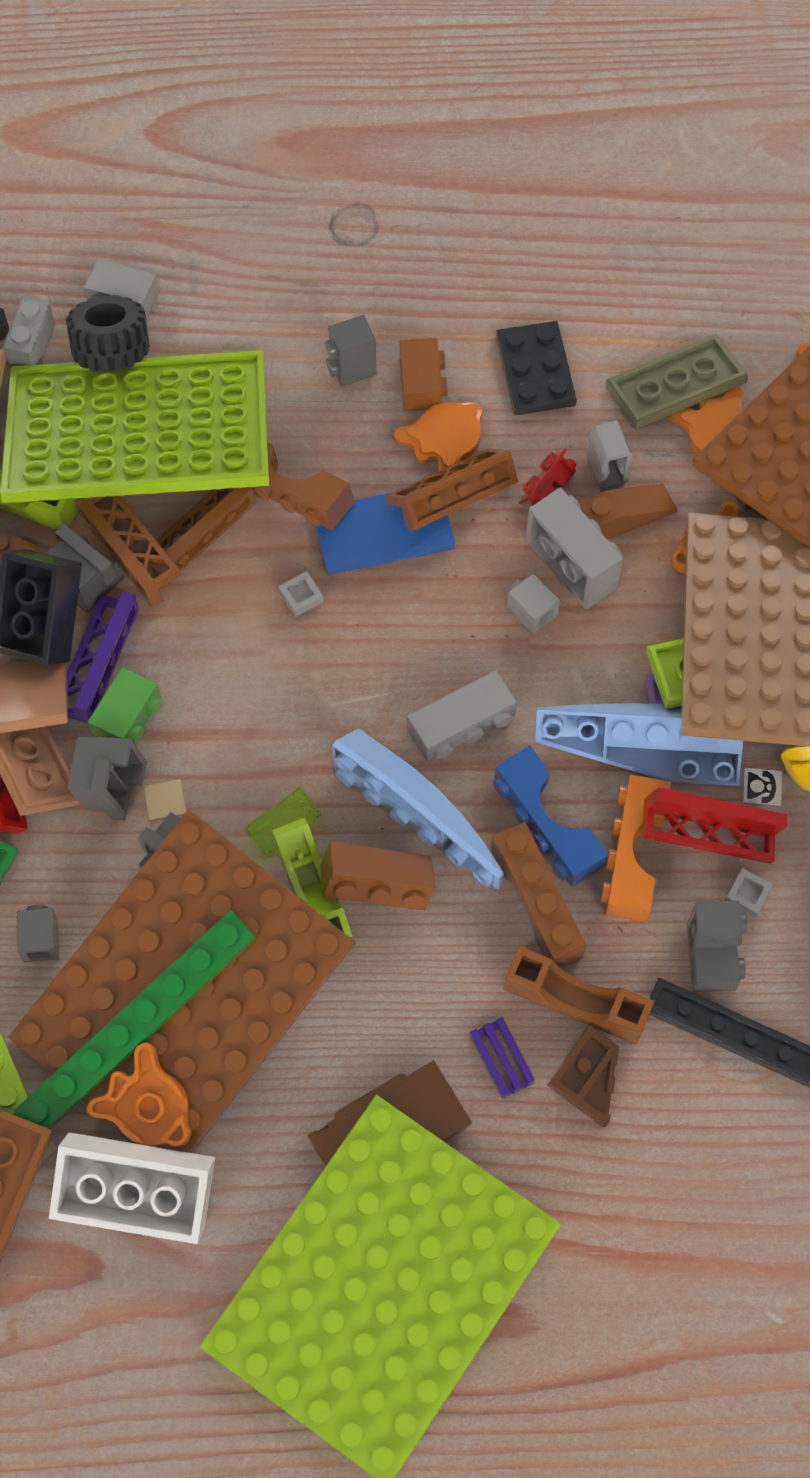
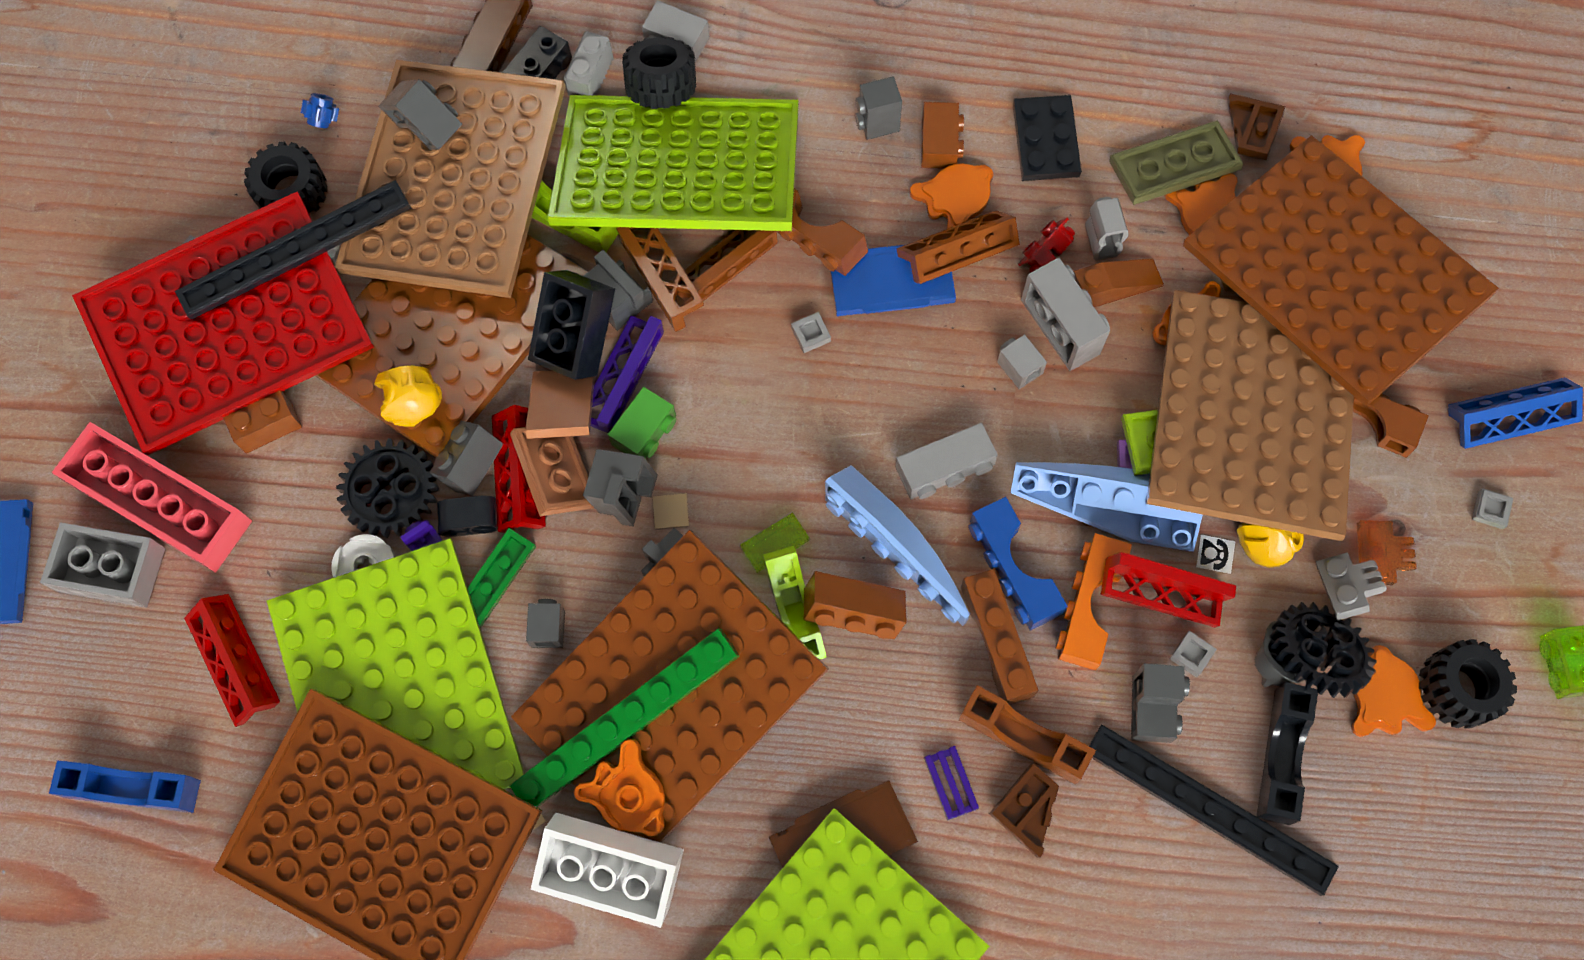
camera: 10 degrees right, 5 degrees up
(756, 335) = (1254, 125): none -> reddish brown wing

